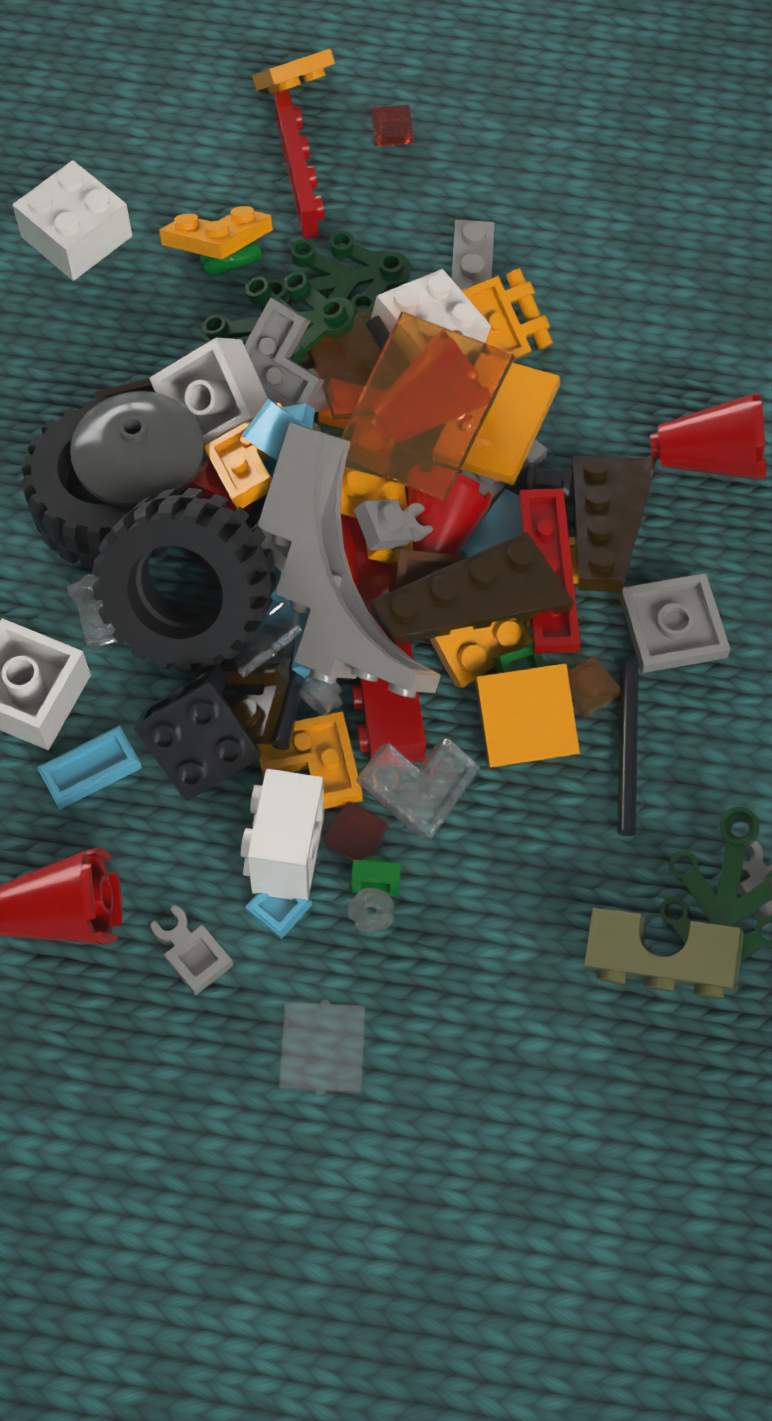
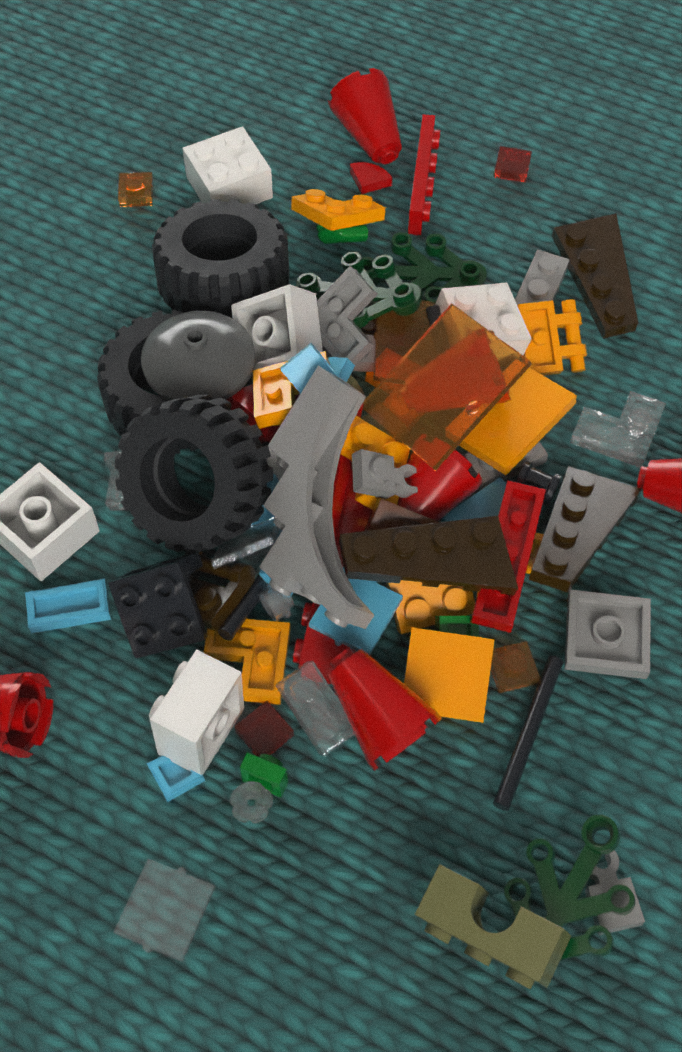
camera: 20 degrees right, 5 degrees down
(102, 295) = (219, 256): none -> black tyre
(194, 955) = (88, 791): light grey plate -> none
(210, 108) = (368, 114): none -> red cone
(236, 182) = (370, 177): none -> red tile
(287, 74) = (439, 102): light orange plate -> none
(424, 705) = (381, 603): none -> medium azure piece
(474, 769) = (378, 706): none -> red cone
(530, 227) = (600, 272): none -> dark brown wing
(615, 409) = (621, 438): none -> clear plate

